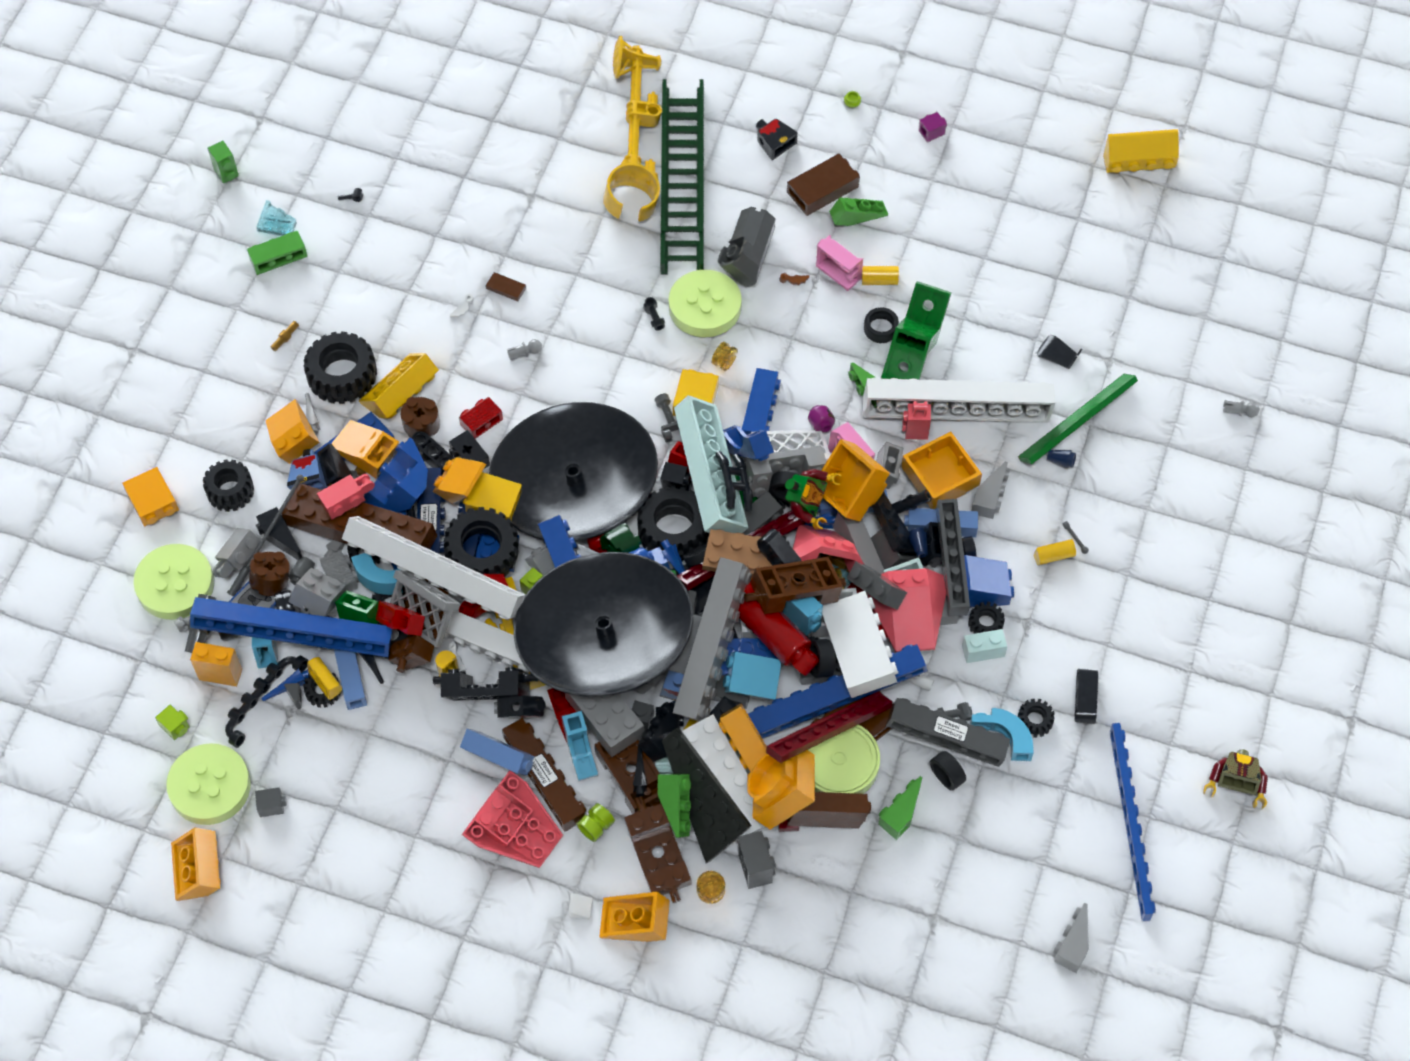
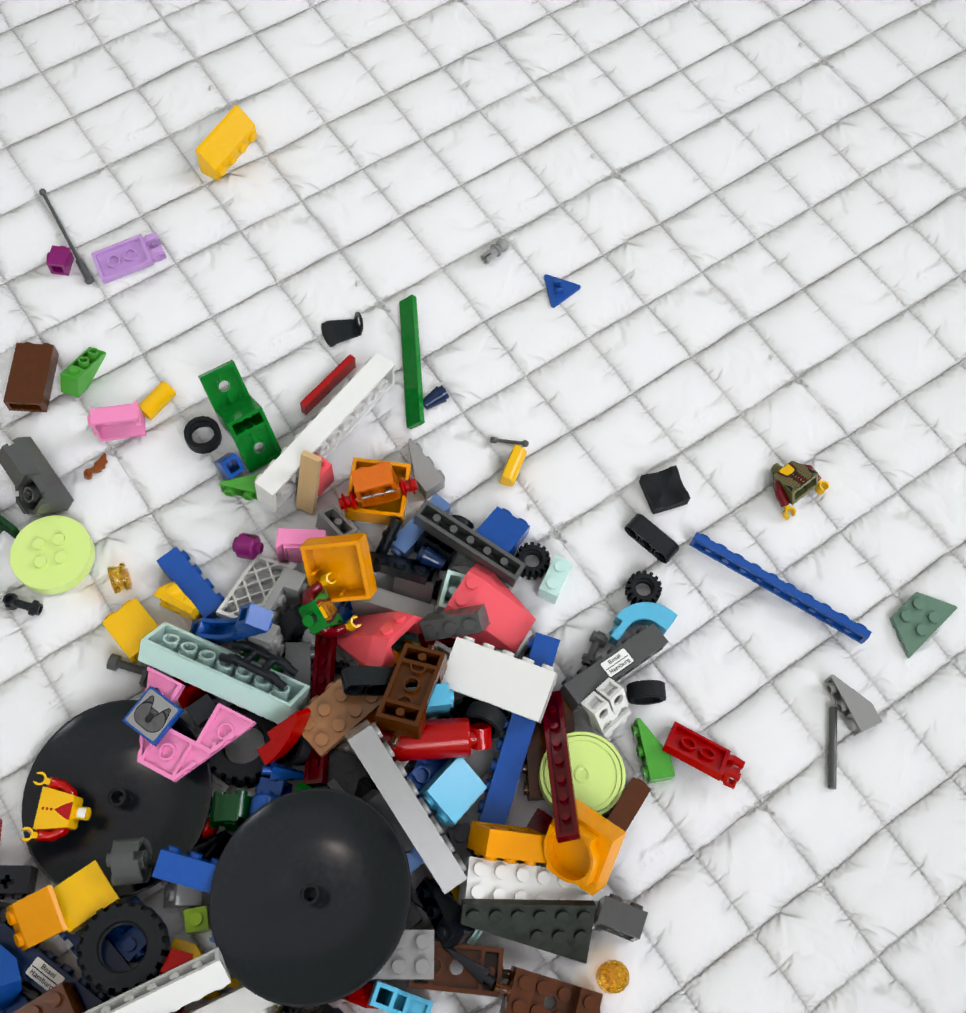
camera: 60 degrees left, 5 degrees up
(535, 441) = (57, 810): none -> torso
(537, 504) = (130, 861): none -> dark grey brick
(629, 477) = (177, 753): none -> bright pink wing
(643, 445) = (153, 716): none -> tile
(675, 799) = (521, 953): bright green slope -> none
(696, 532) = (284, 736): none -> red slope
(738, 401) = (176, 601): none -> yellow slope
(871, 359) = (229, 465): none -> blue brick
(902, 415) = (308, 482): none -> tan tile
(907, 754) = (607, 707): none -> white hips
(933, 845) = (703, 754): none -> red tile
(936, 156) = (79, 261): none -> dark grey piece
(937, 459) = (376, 486): none -> orange brick
(979, 166) = (128, 257): none -> lavender tile
(982, 374) = (328, 384): none -> red tile
(1026, 947) = (832, 748): none -> dark grey bar
(1138, 678) = (664, 490): none -> black brick
(1205, 955) = (919, 620): none -> sand green wing
(1254, 481) = (559, 289): none -> blue piece

